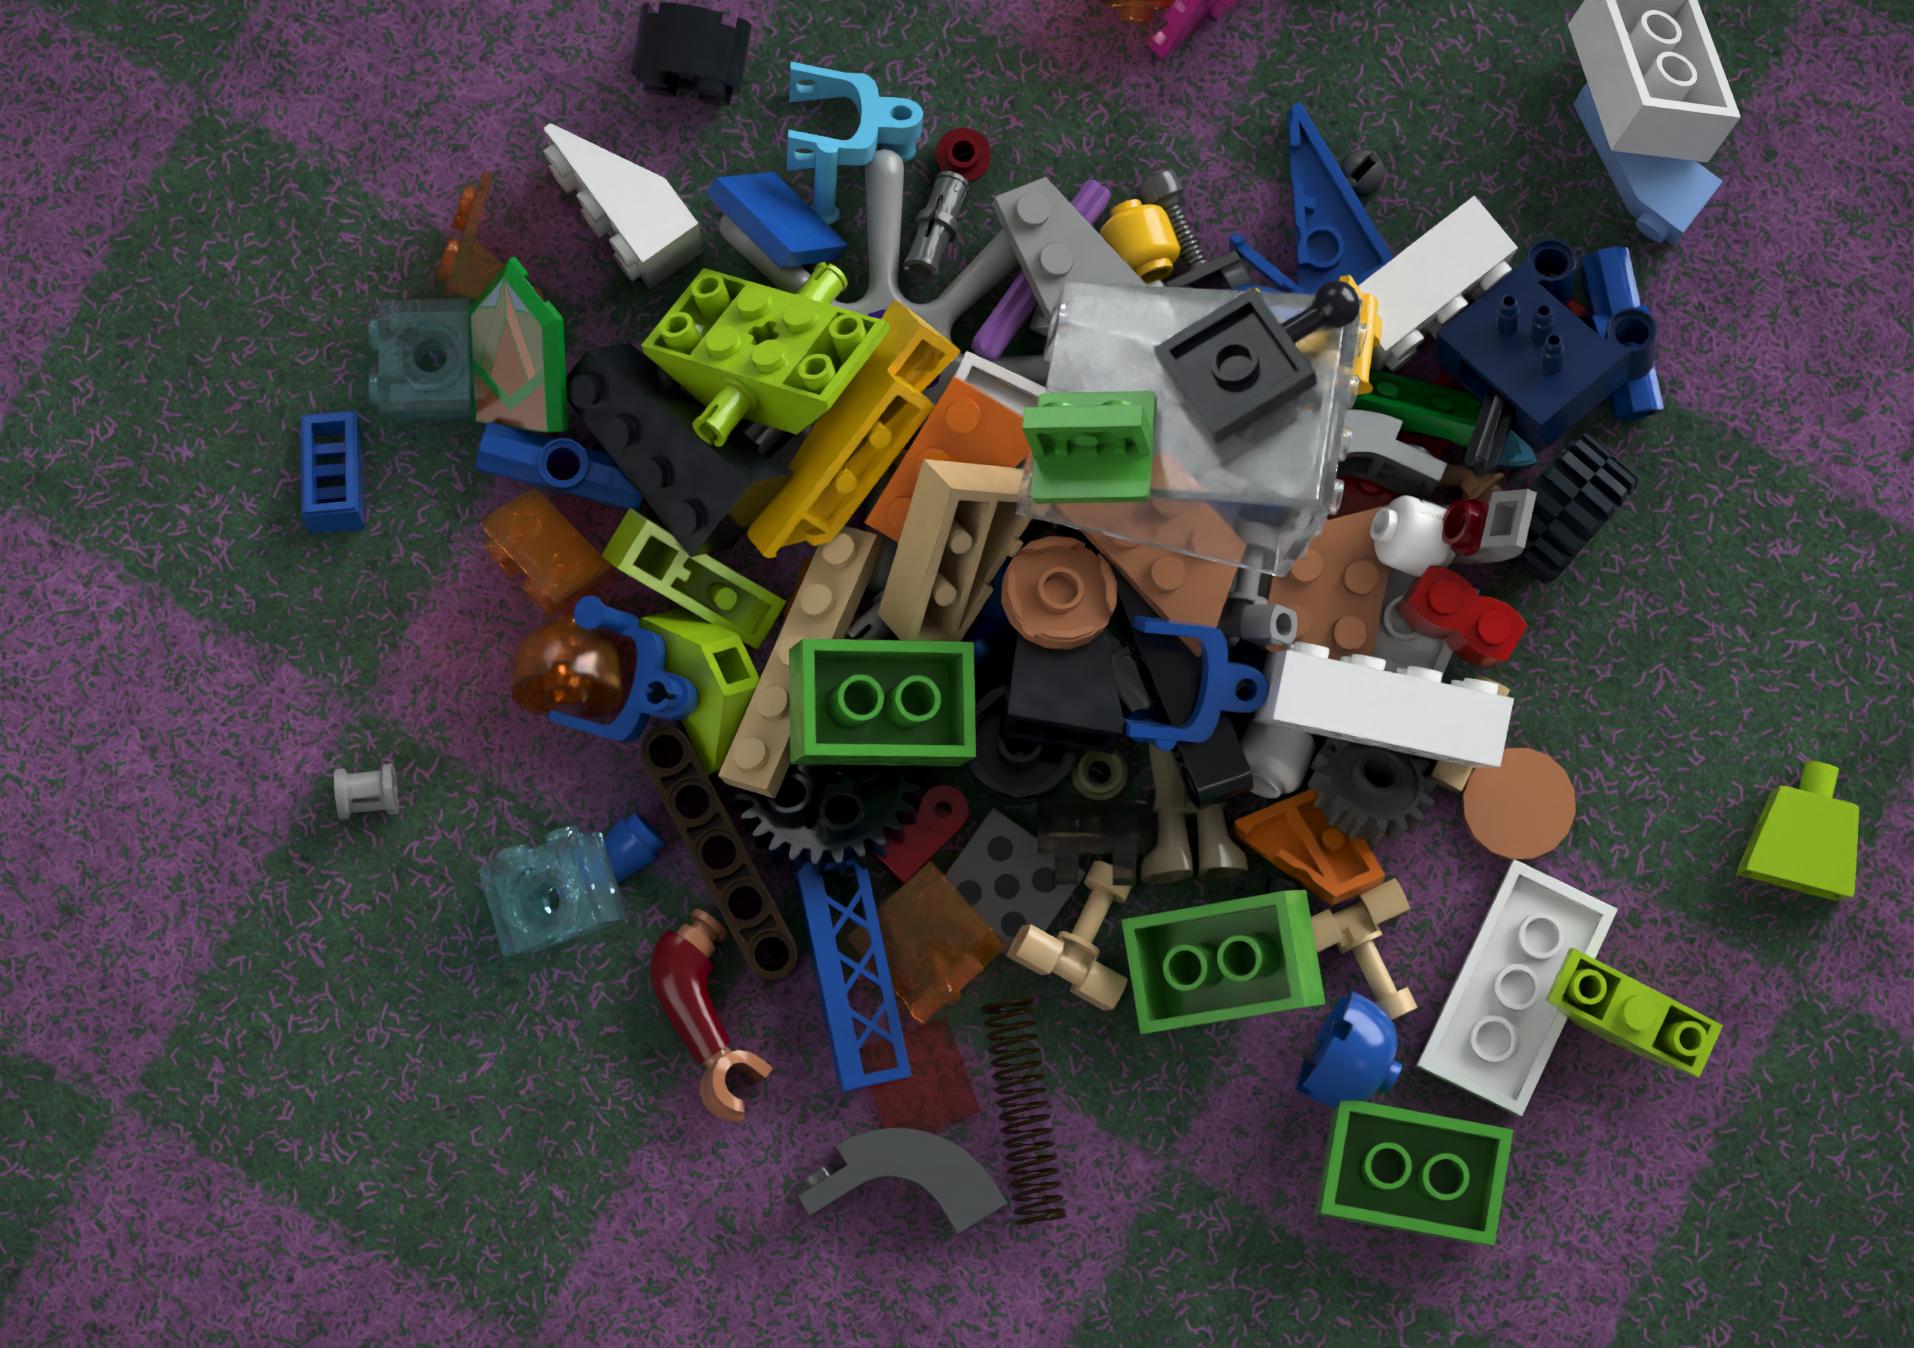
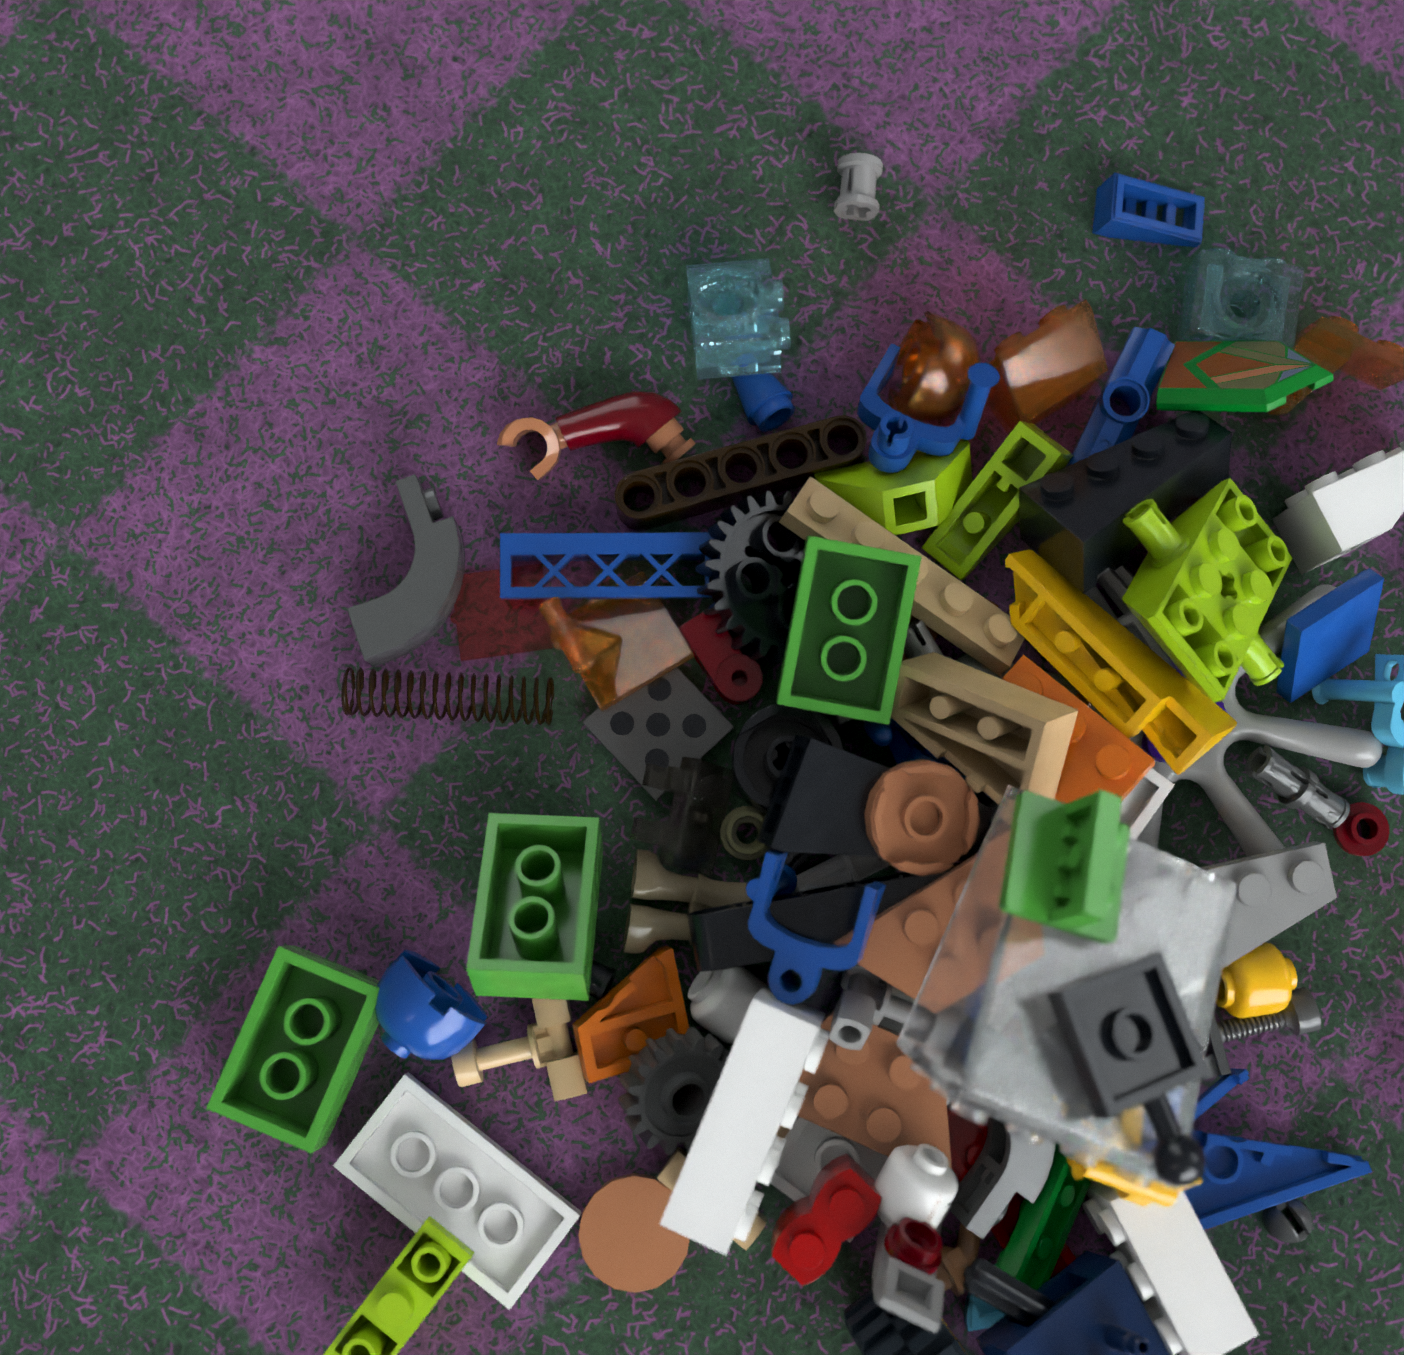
camera: 100 degrees right, 0 degrees up
(1019, 298) = (1213, 849): medium lavender axle -> none
(1073, 953) = (580, 769): tan bar -> none

